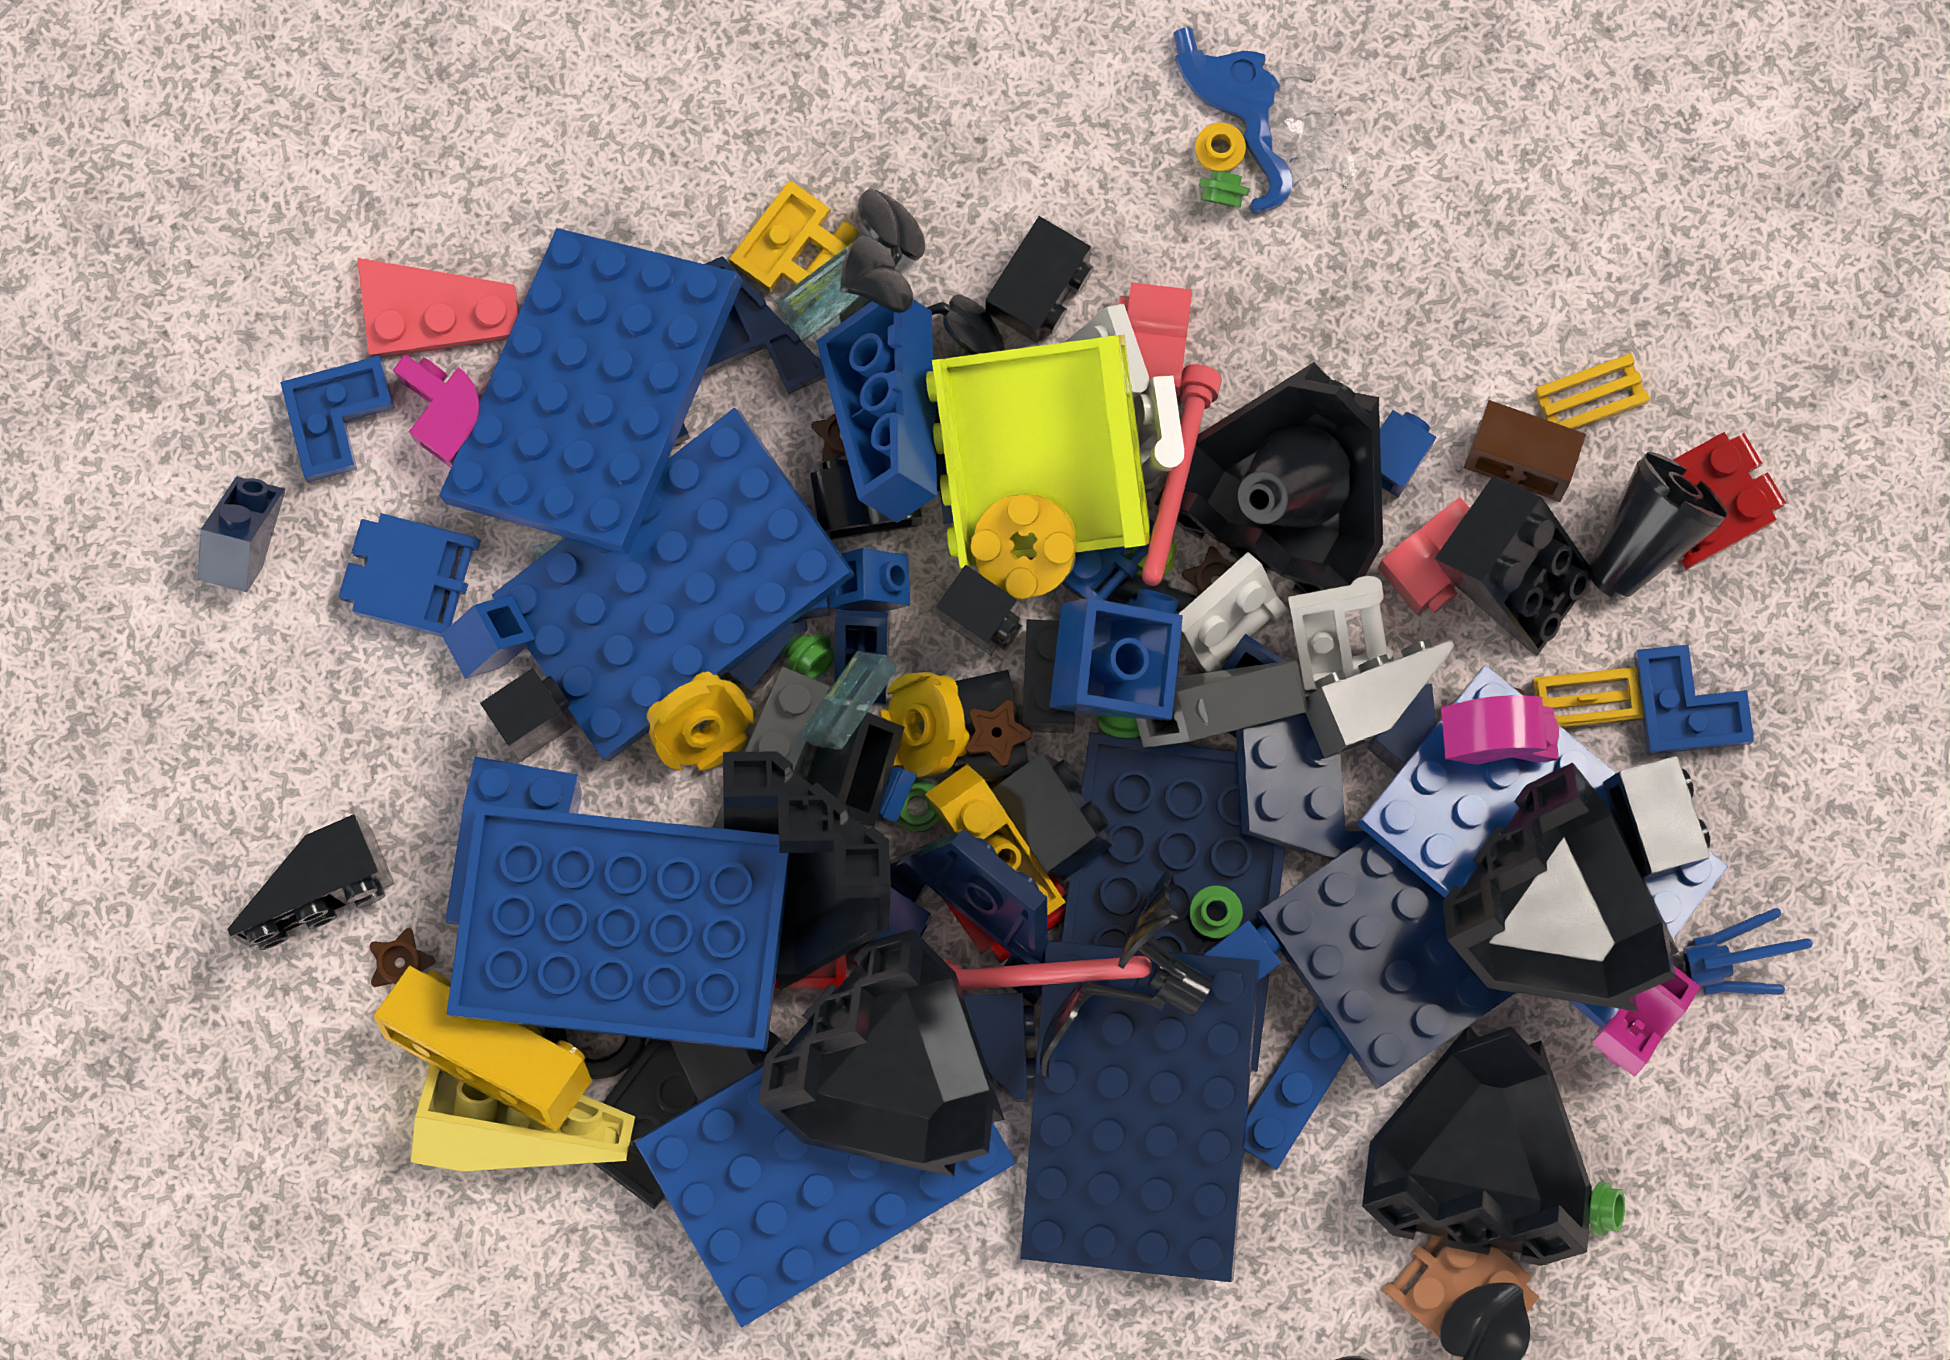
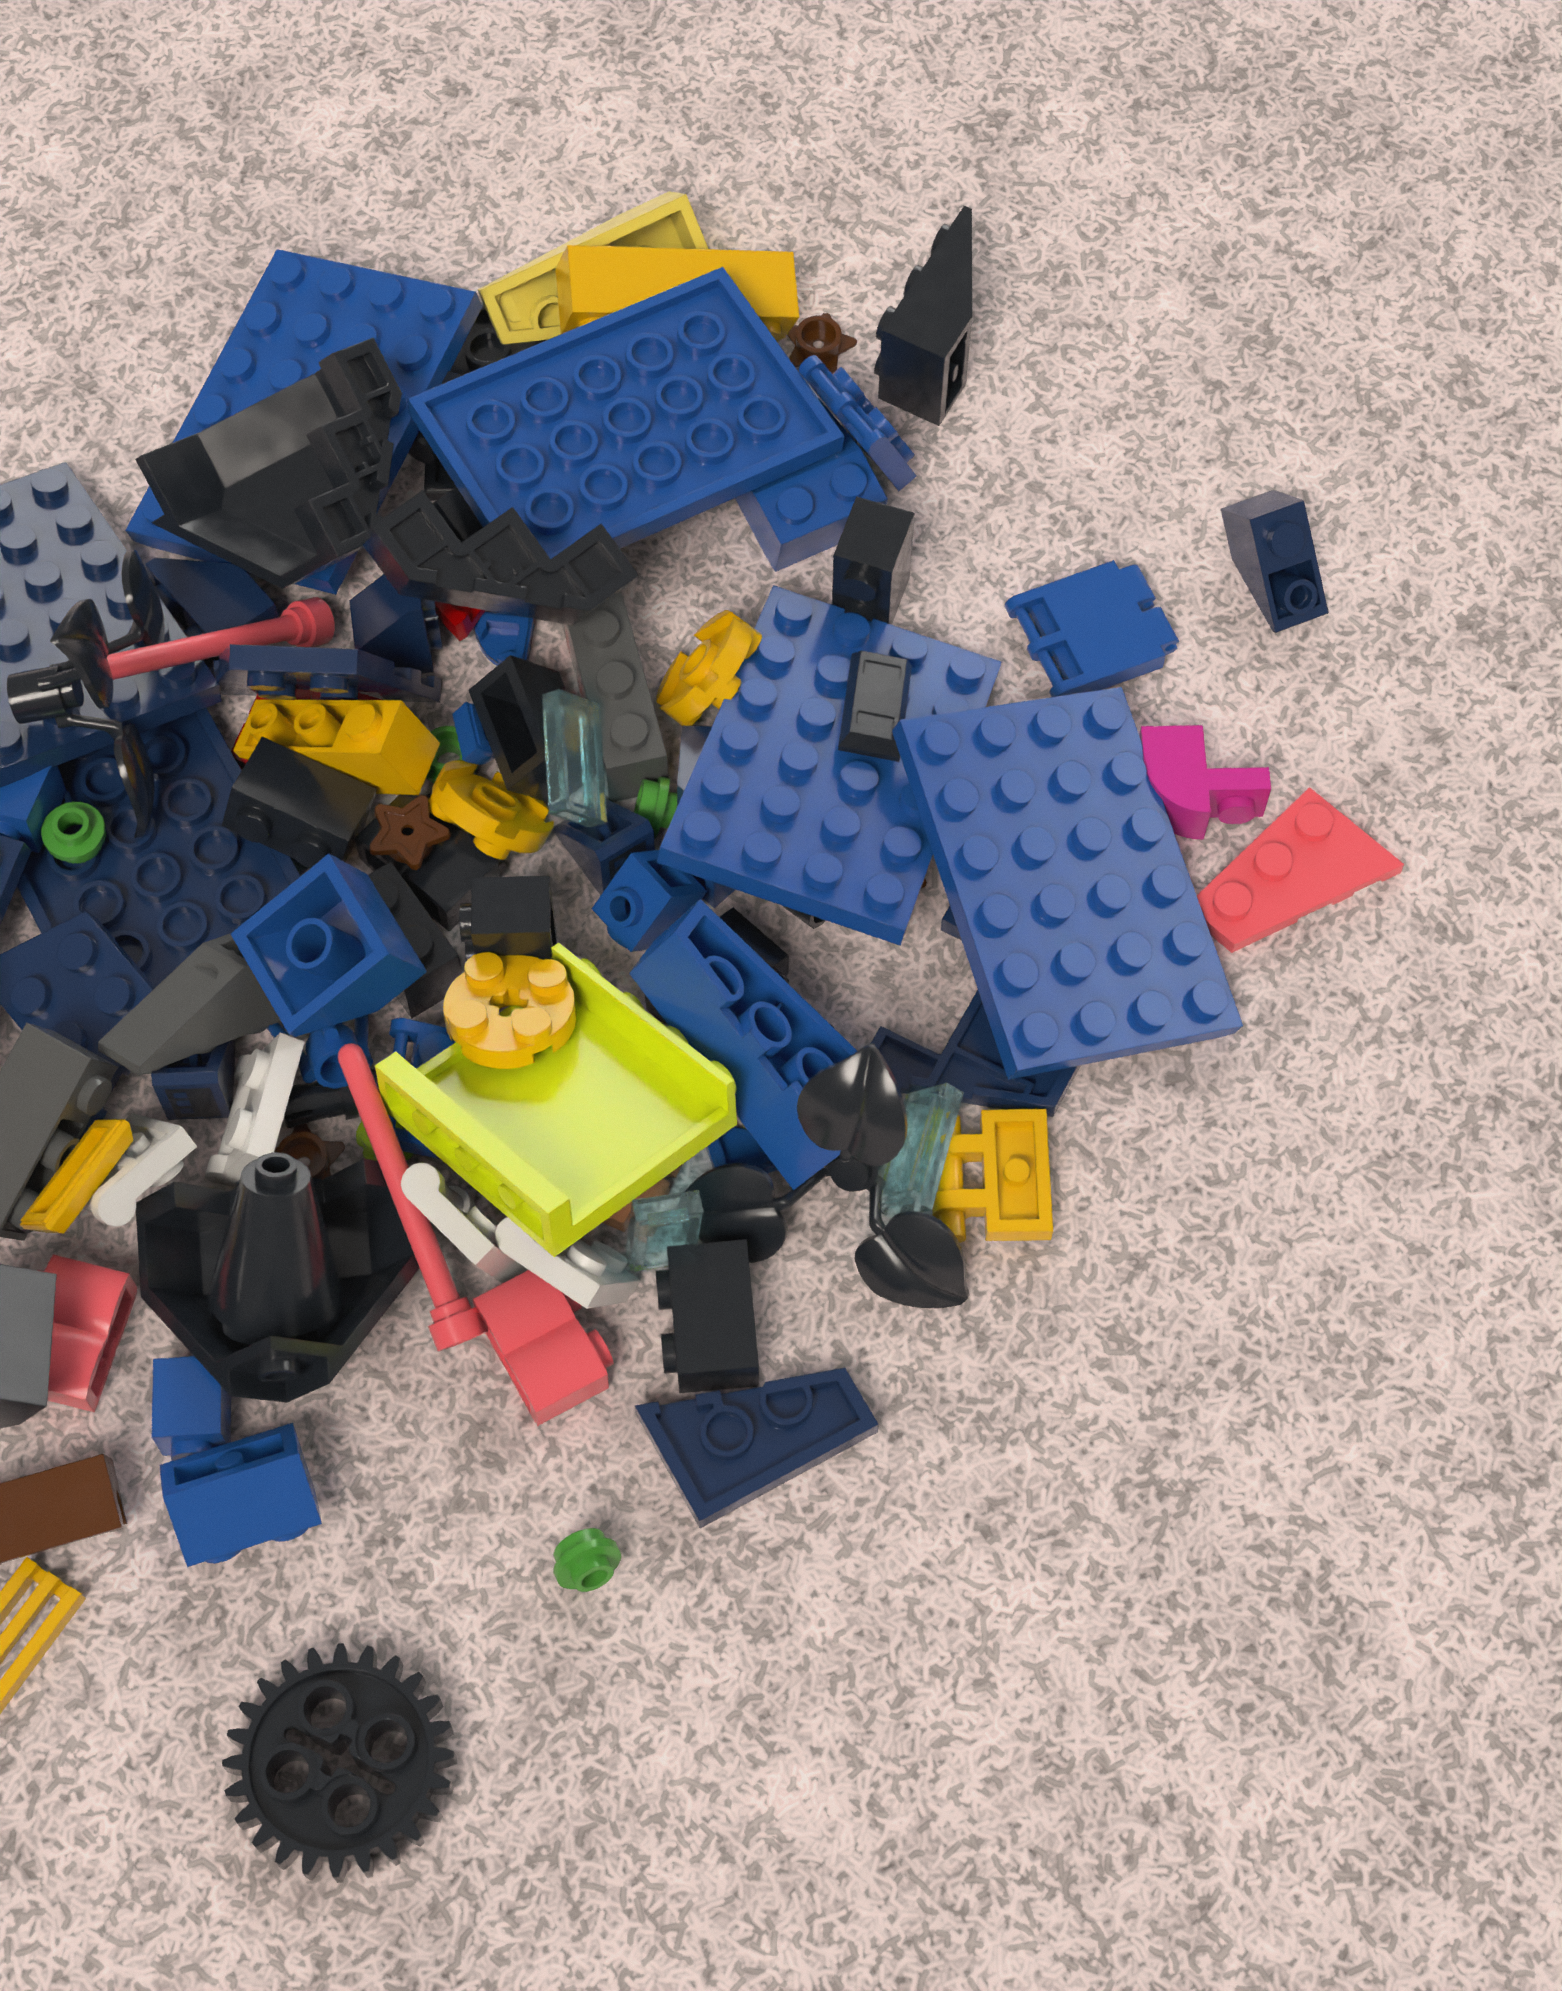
camera: 140 degrees right, 15 degrees down
(321, 406) = (1305, 712): blue plate -> none
(441, 817) = (861, 420): none -> blue plate
(488, 636) = (968, 614): blue brick -> none
(617, 594) = (874, 704): none -> black tile
(1026, 330) = (661, 1223): none -> clear light blue tile
(1073, 190) = (754, 1439): none -> dark blue wing
(1220, 161) = (625, 1631): yellow plate -> none
(1276, 113) = (595, 1702): piece -> none
(1377, 632) = (79, 1176): none -> yellow tile
(1405, 368) = (240, 1495): none -> blue brick
(1488, 160) = (306, 1818): none -> black gear

